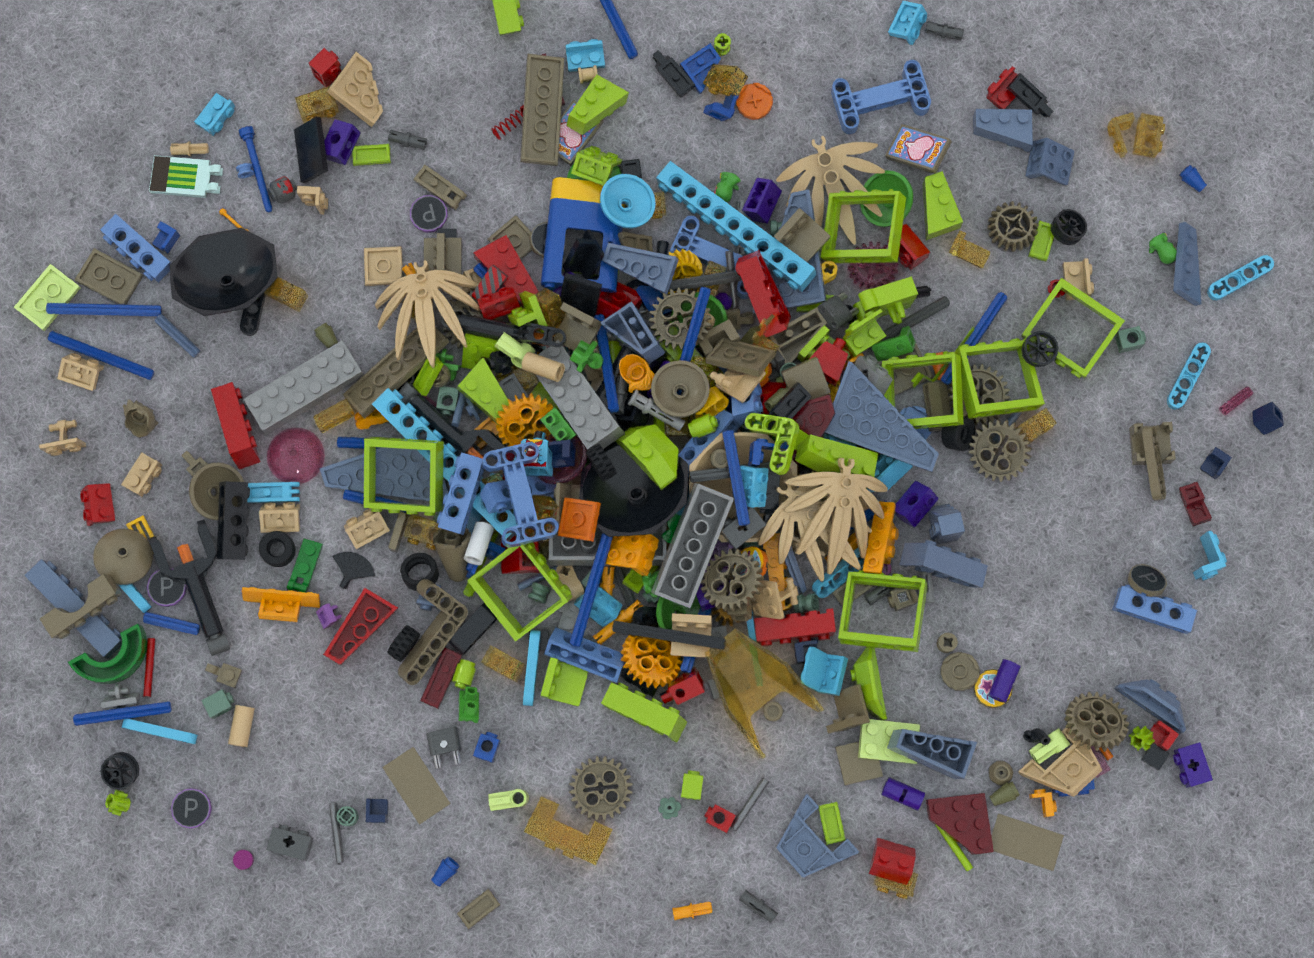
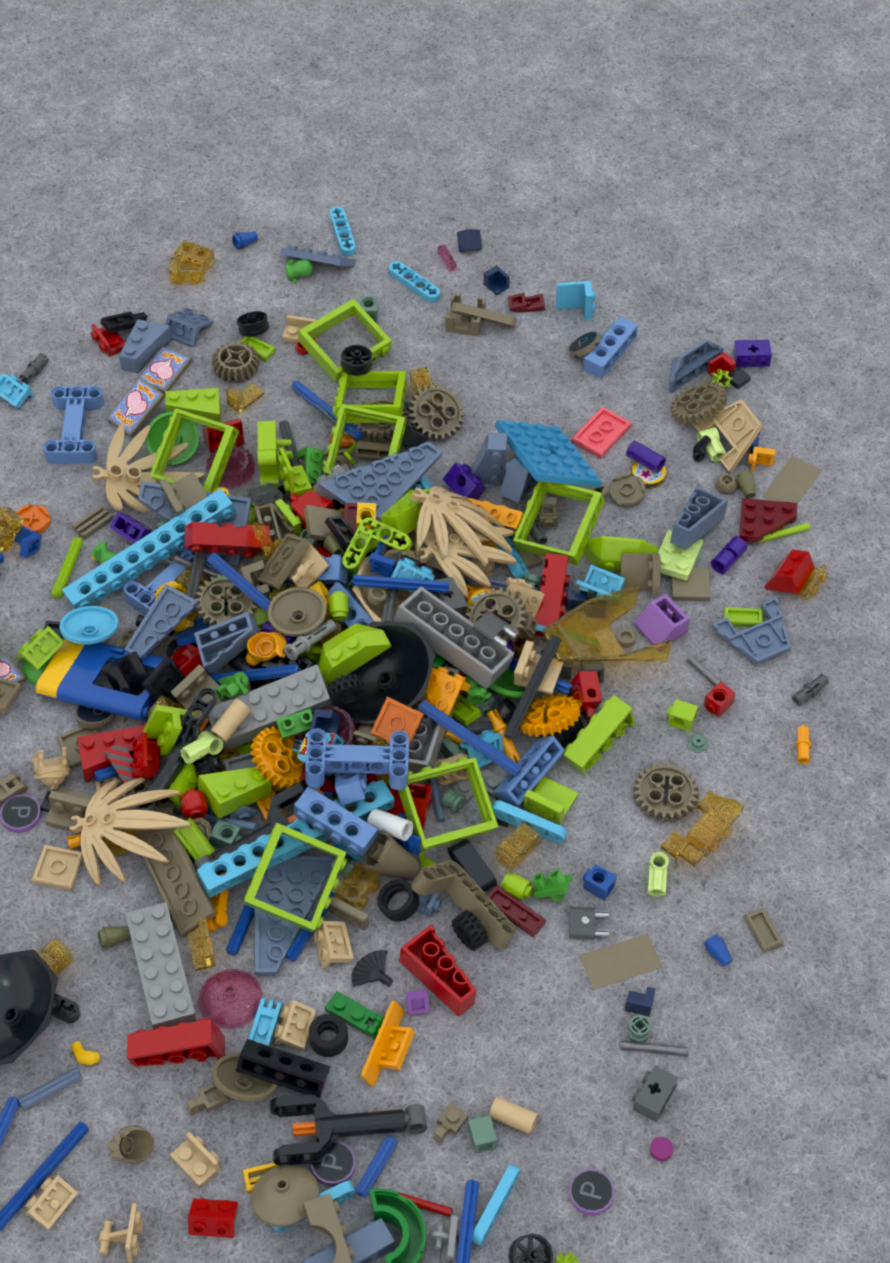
camera: 75 degrees left, 25 degrees down
(210, 354) = (83, 1056): none -> yellow arm
(460, 362) = (193, 804): none -> red head
(474, 223) = (52, 770): none -> tan helmet
(707, 154) = (67, 567): none -> lime axle
(708, 578) = (492, 627): none -> dark grey piece
(769, 151) = (90, 521): none -> dark tan tile
(795, 742) = (662, 621): none -> medium lavender slope
(822, 422) = (365, 510): none -> yellow brick
(939, 585) = (534, 448): none -> dark azure plate
(982, 158) = (165, 368): none -> tile
(1033, 627) = (601, 432): none -> coral tile

